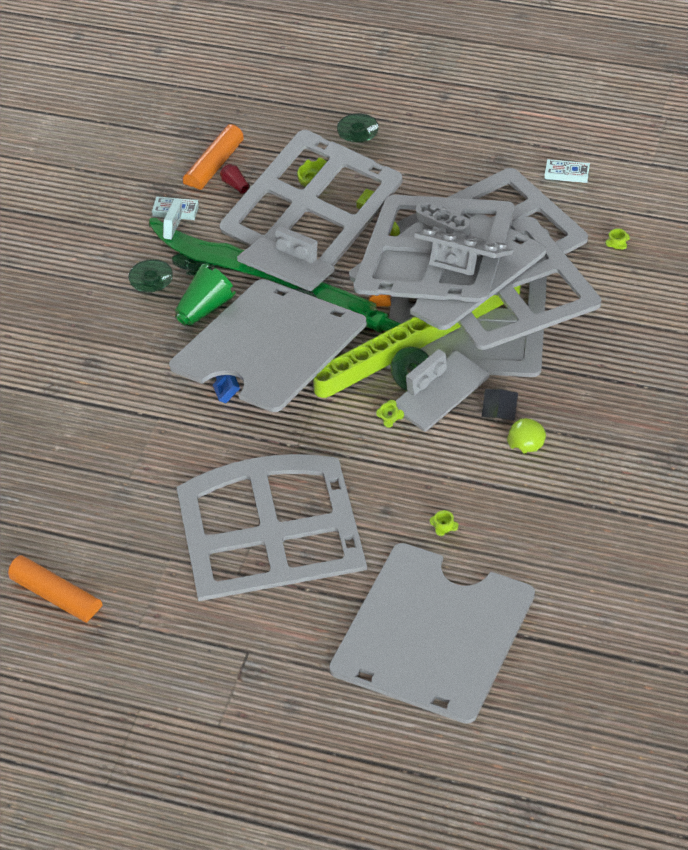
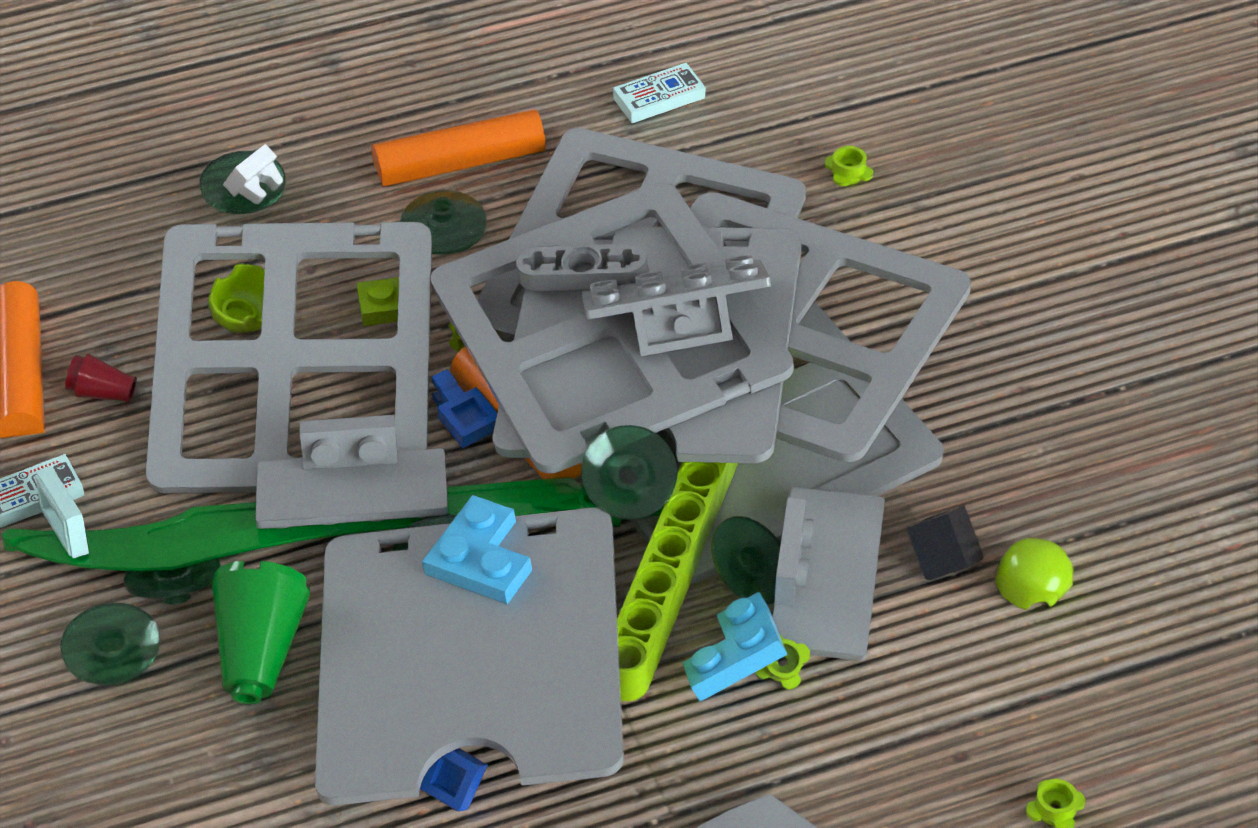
camera: 40 degrees left, 0 degrees up
(300, 308) = (471, 553): none -> medium azure plate
(356, 256) = (464, 415): none -> blue plate
(359, 122) = (254, 169): none -> white tile
(377, 398) = (748, 646): none -> medium azure plate
(378, 300) = (631, 449): none -> clear green dish
(427, 182) = (452, 218): none -> clear green dish
(459, 154) = (458, 147): none -> orange brick

